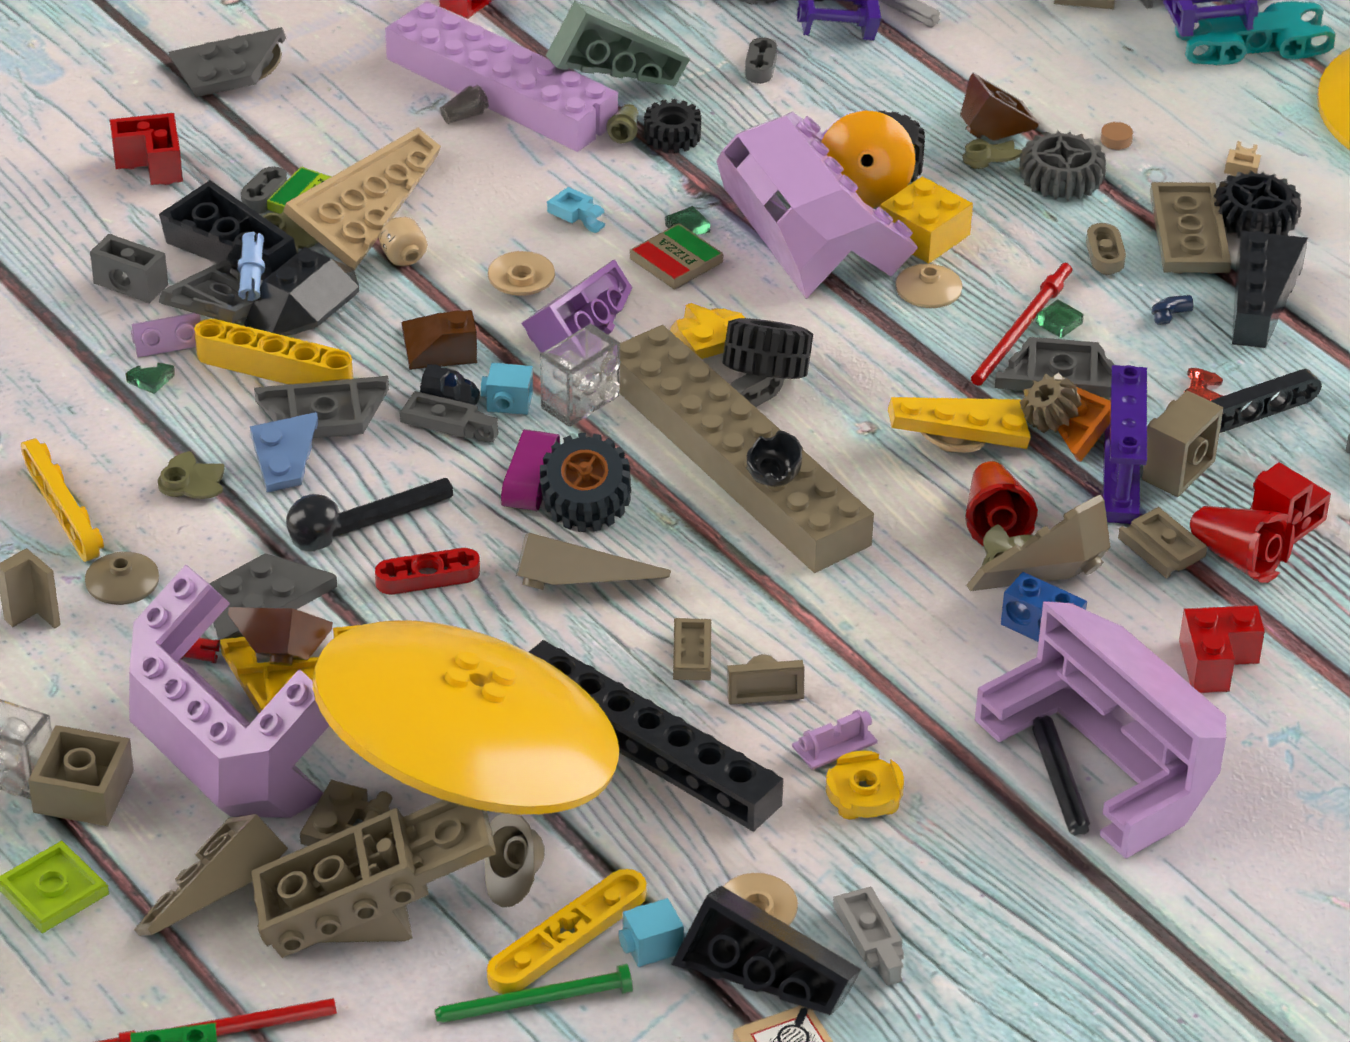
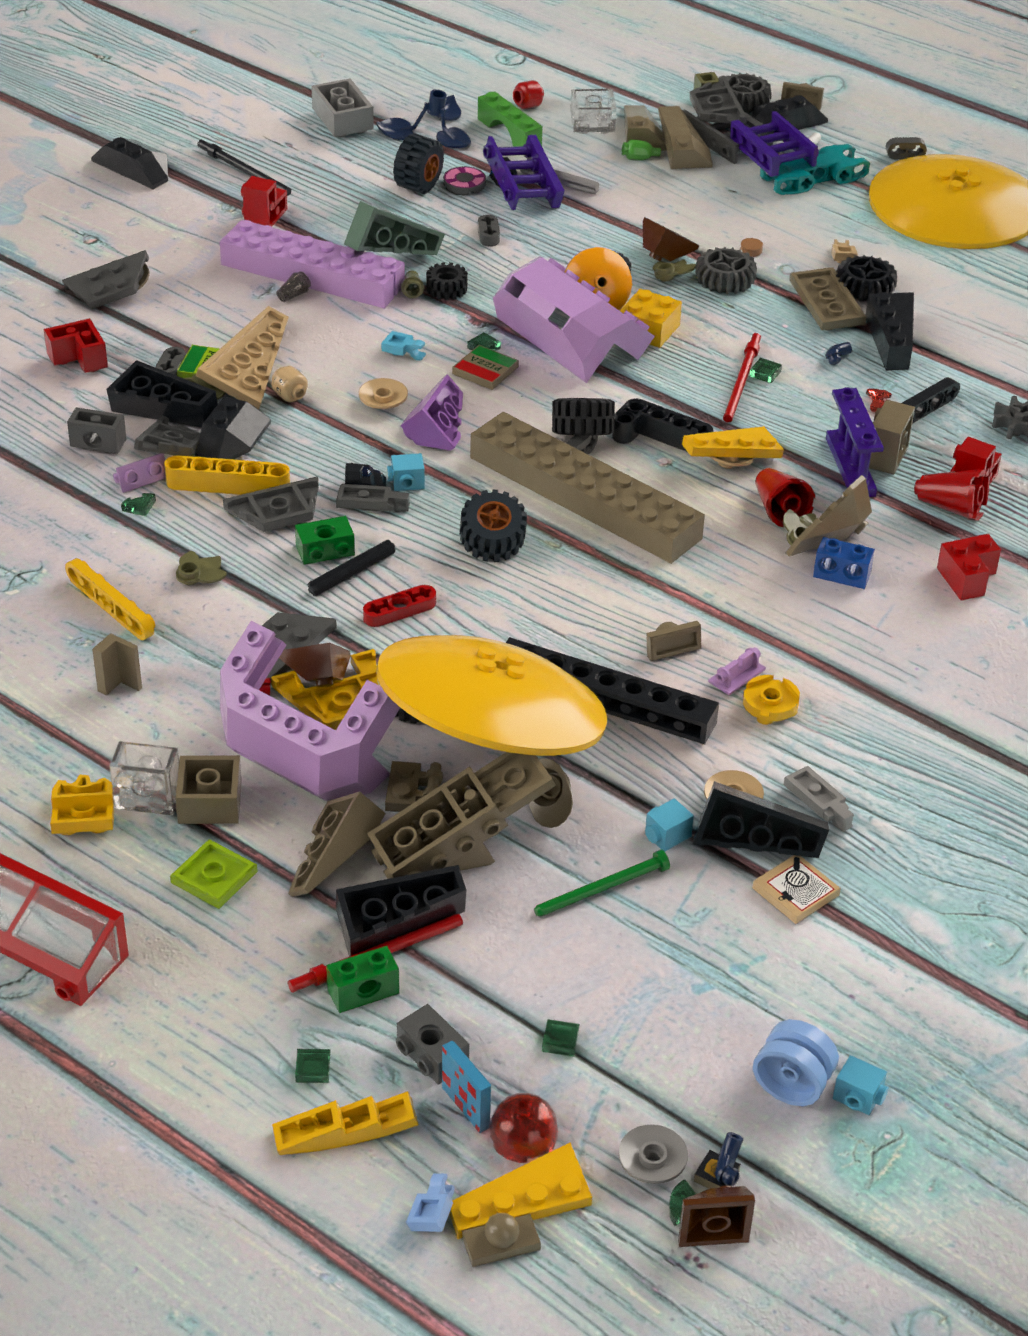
camera: 15 degrees left, 0 degrees up
(122, 578) = (175, 647): dark tan dish -> none
(251, 266) = (191, 414): light blue pin -> none
(255, 974) = (398, 906): none -> black wedge
(283, 450) = (262, 538): medium blue wing -> none
(312, 522) = (305, 585): black hair -> none
(363, 465) = (324, 540): none -> green brick
(440, 339) = (343, 446): reddish brown slope -> none
(522, 481) = (446, 525): magenta beam -> none
(547, 946) = (593, 853): yellow piece -> none
(559, 562) = (494, 583): dark tan wedge -> none
(580, 375) = (458, 454): clear brick -> none
(692, 649) = (611, 627): dark tan plate -> none
(704, 329) = (531, 410): yellow plate -> none
(775, 459) = (628, 487): black hair -> none
(868, 369) = (656, 423): none -> black beam
(929, 285) = (667, 362): tan dish -> none
(1050, 403) = (790, 424): dark tan gear -> none
(1061, 775) = (900, 669): black axle -> none
(1077, 360) = (784, 401): dark grey wing -> none
(1088, 426) = (810, 431): orange wing -> none
(1105, 248) = (777, 320): dark tan plate -> none
(1126, 707) = (935, 616): lavender wedge -> none
(1162, 542) = (900, 504): dark tan plate -> none

